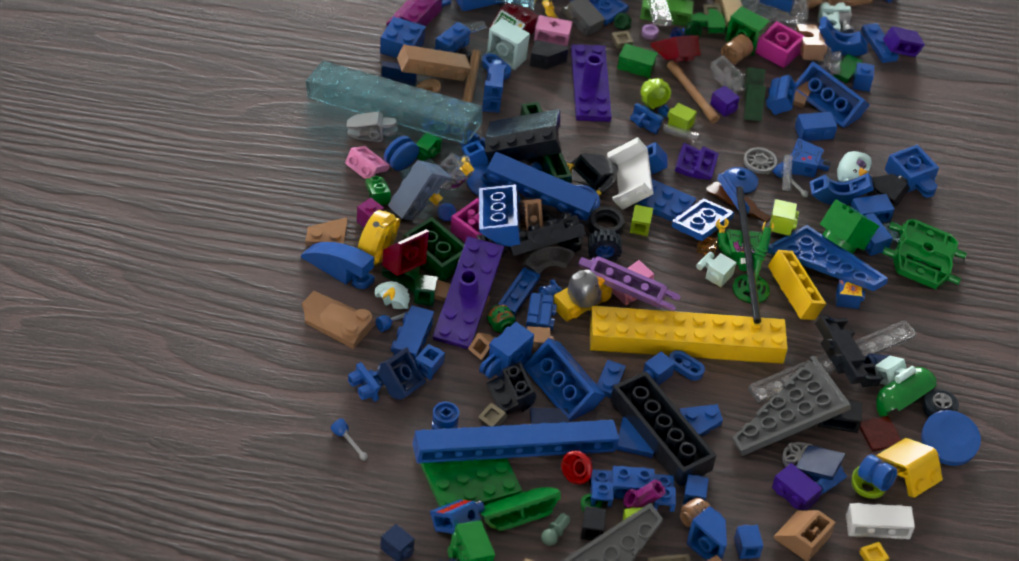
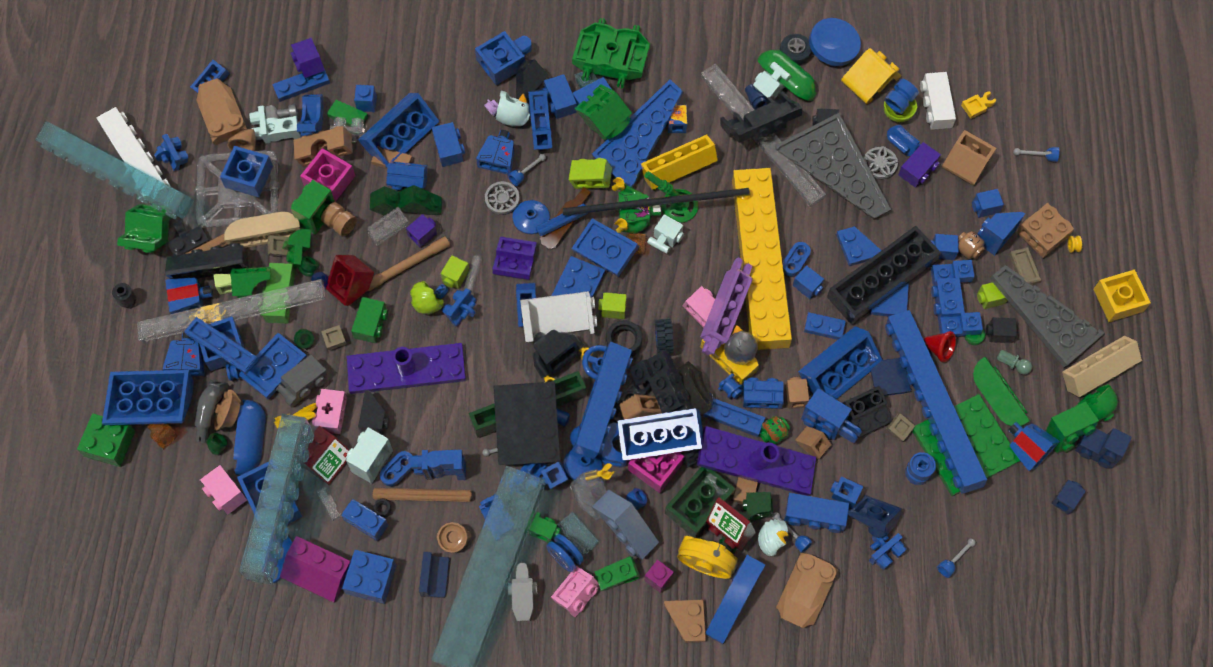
camera: 90 degrees left, 20 degrees up
(433, 63) = (417, 533): medium nougat brick -> none
(645, 495) = (971, 285): magenta piece -> none
(650, 32) = (312, 311): lavender tile -> none
(787, 172) = (526, 170): clear piece -> none
(820, 462) = (893, 143): piece -> none
(879, 433) = (835, 98): clear red piece -> none

